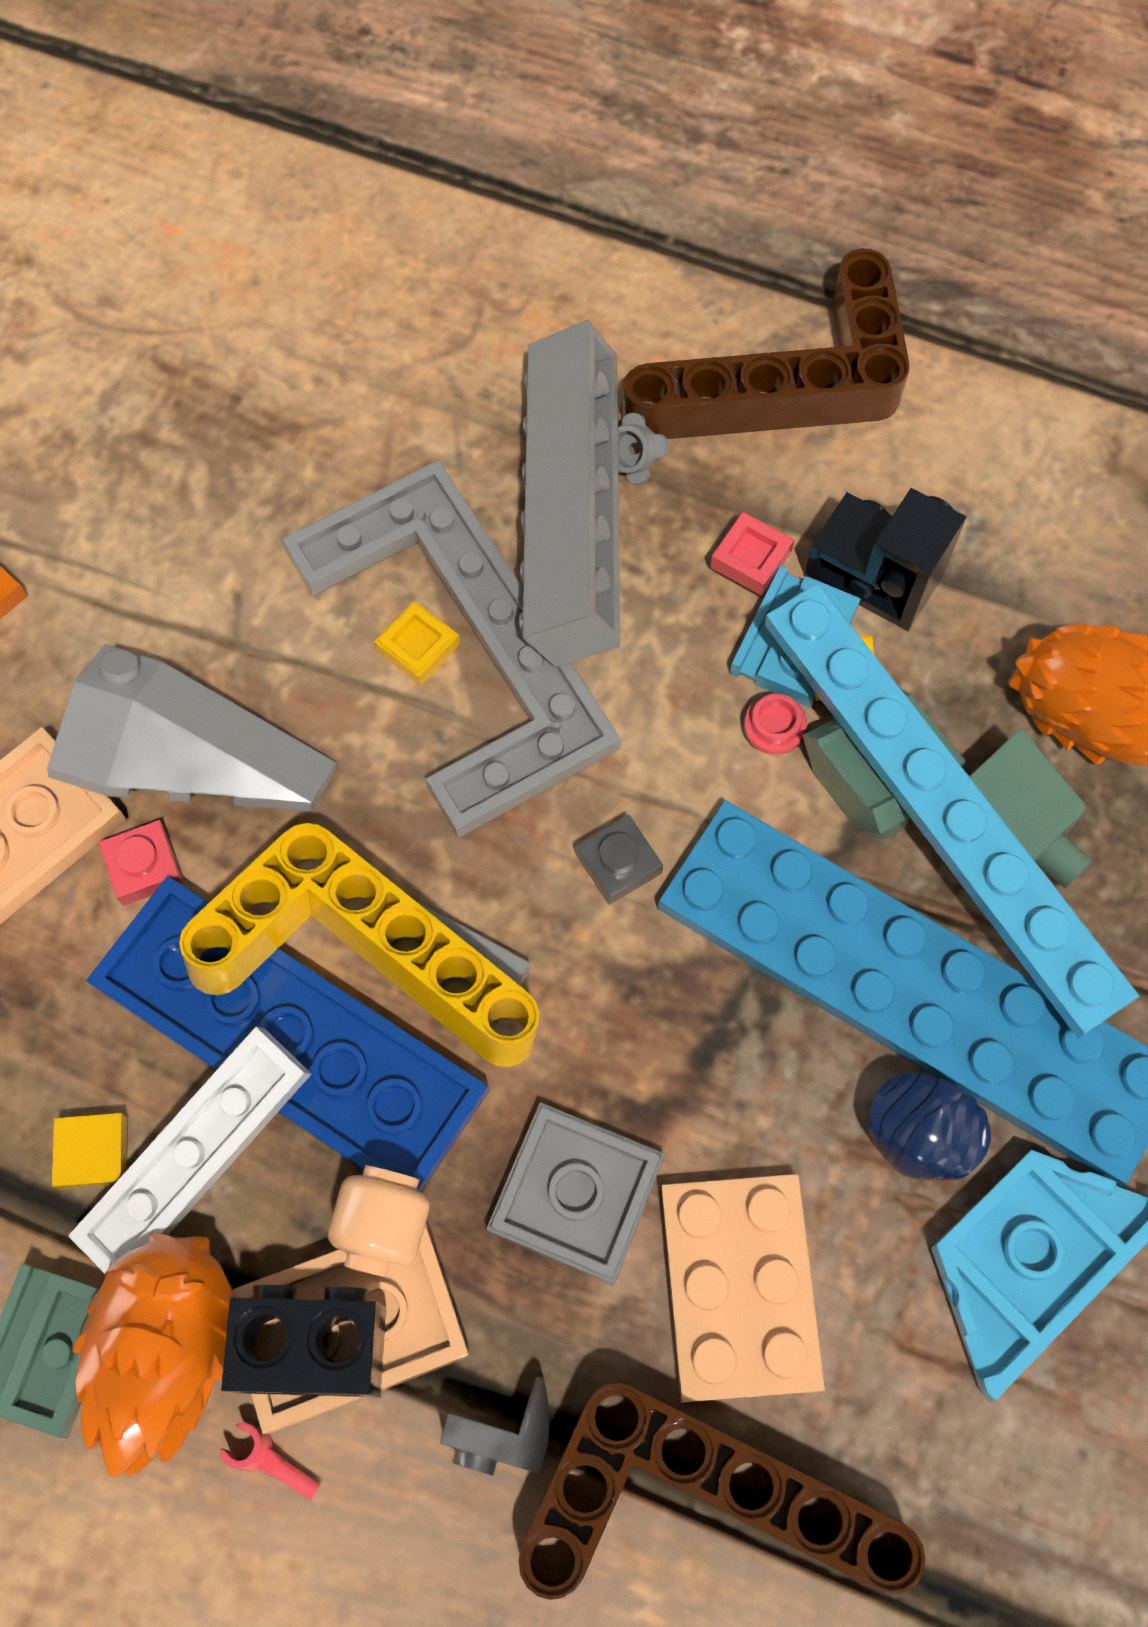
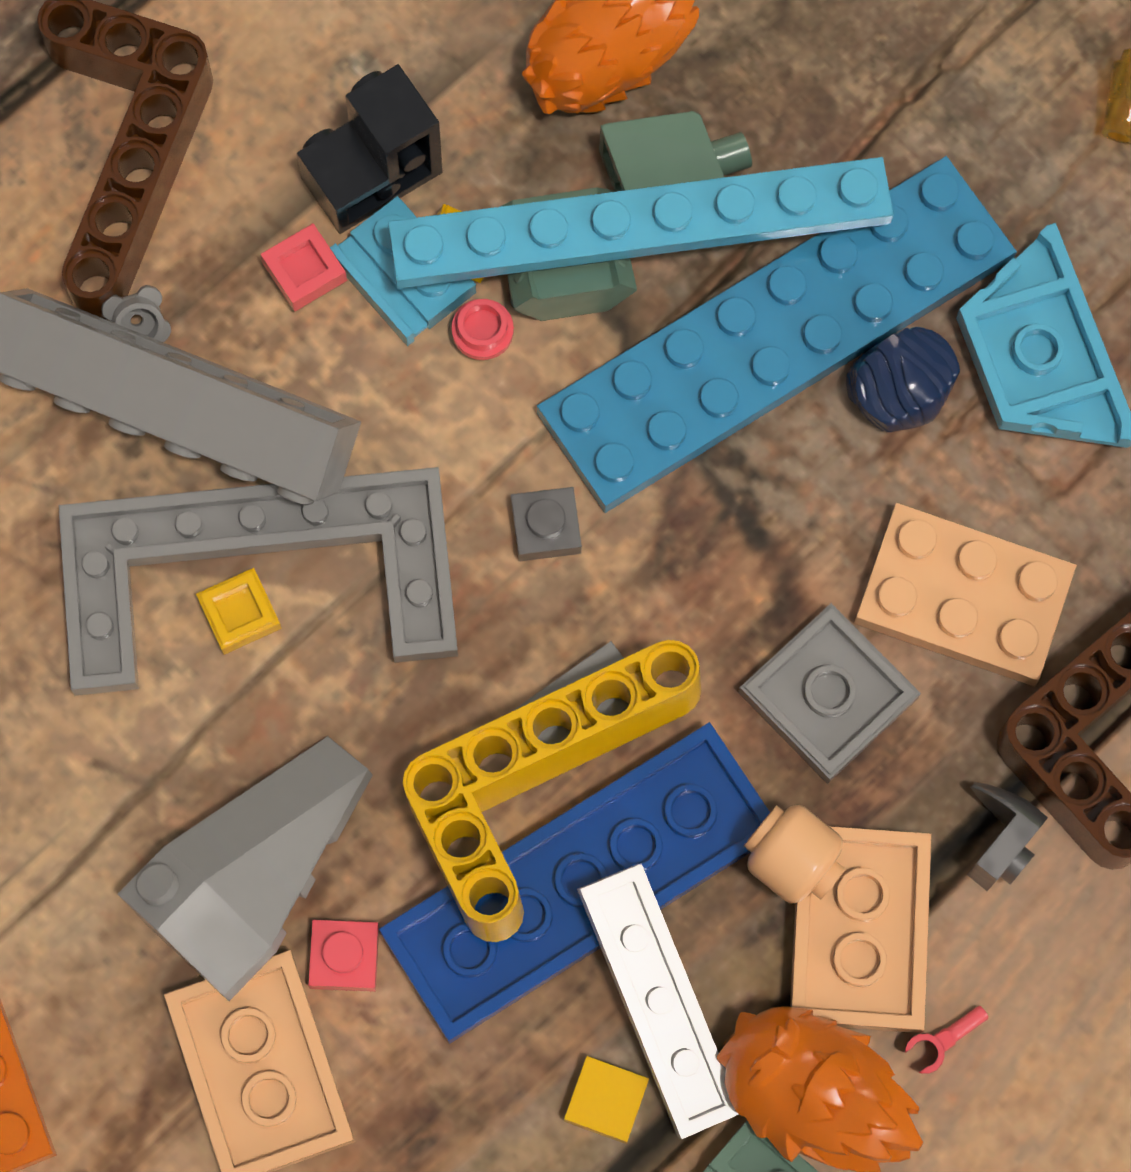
camera: 70 degrees left, 5 degrees up
(304, 1362) = (887, 963): black brick -> none

